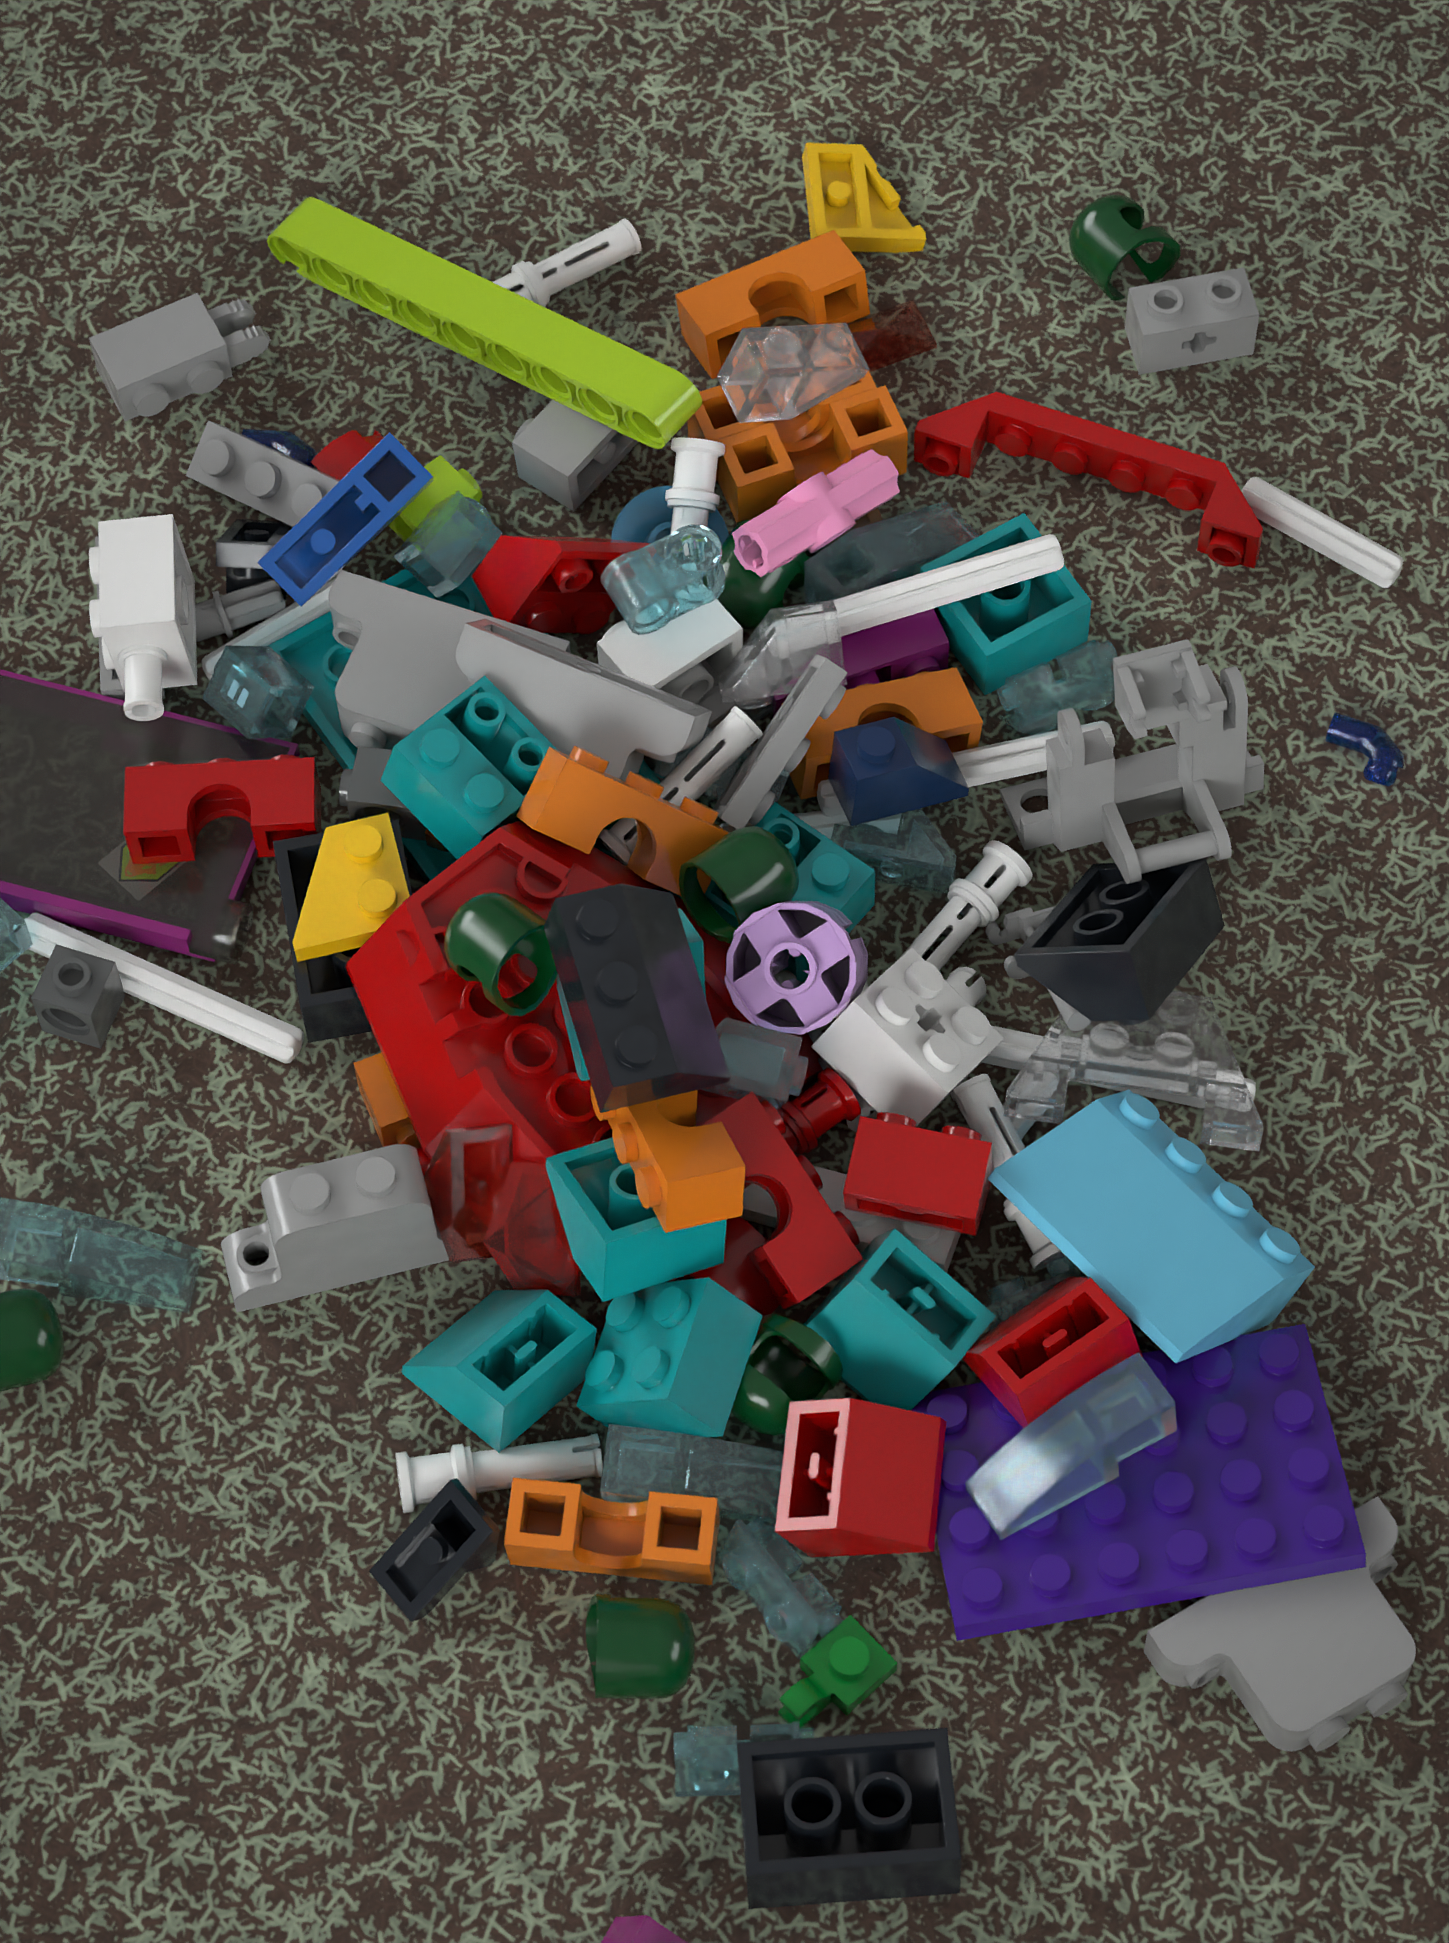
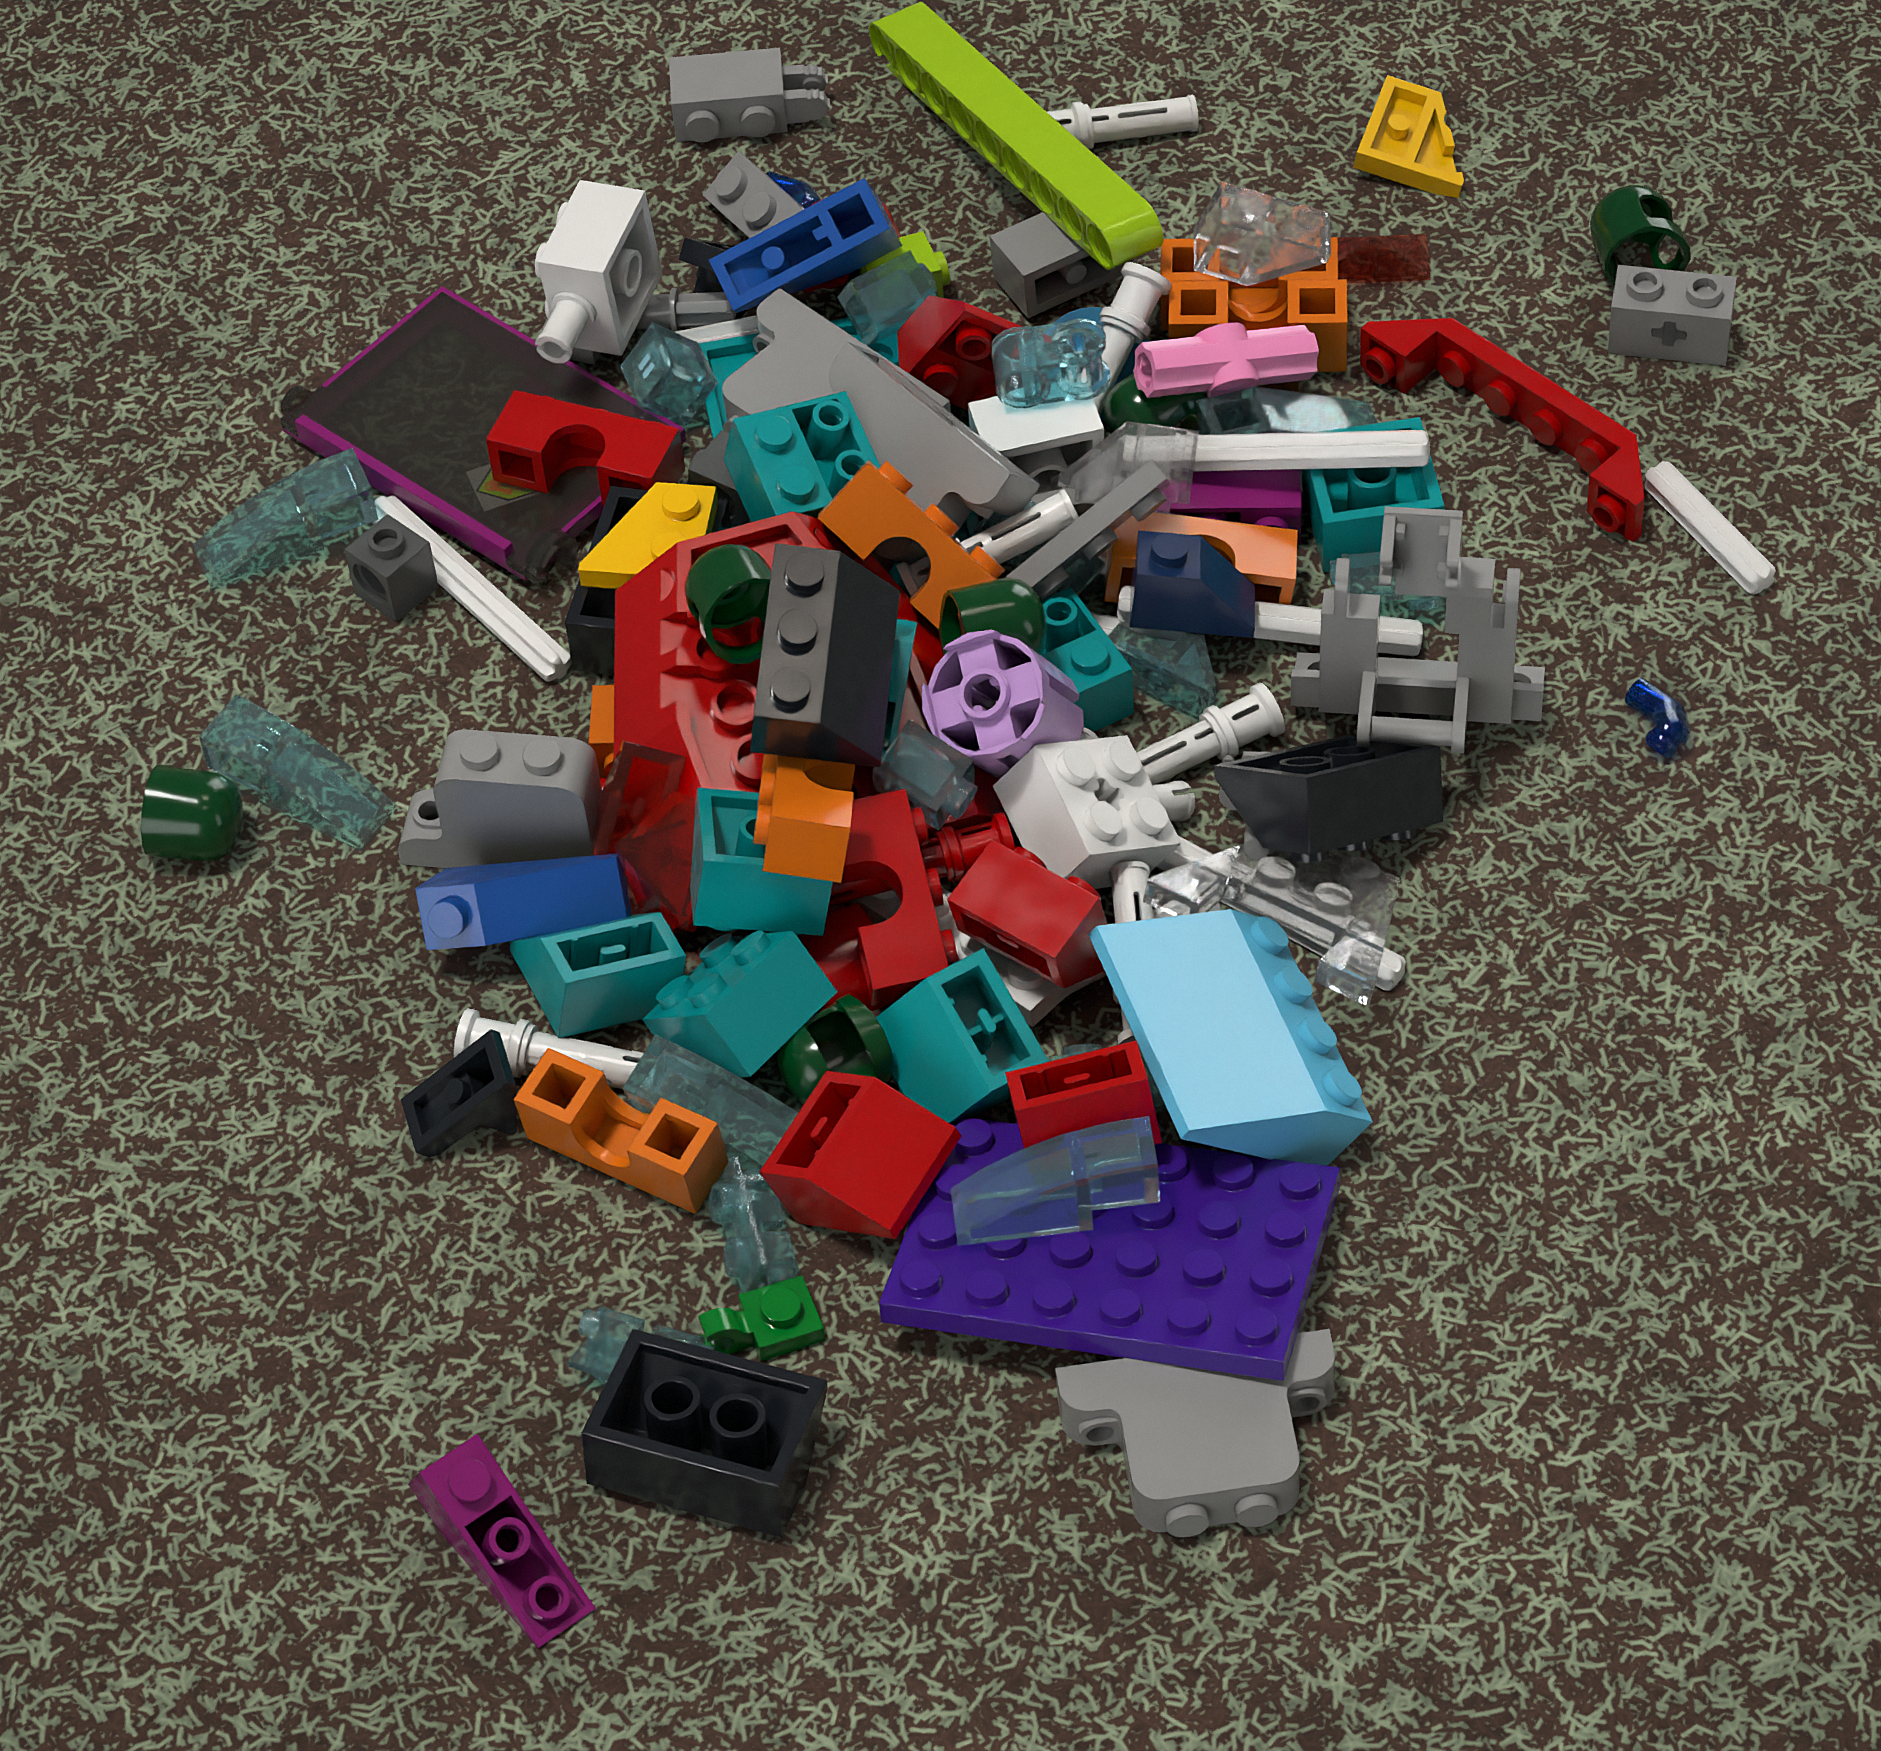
camera: 25 degrees right, 10 degrees down
(395, 1322) = (520, 900): none -> blue slope
(639, 1647) = (595, 1233): dark green helmet -> none
(807, 281) = (1330, 181): orange arch -> none

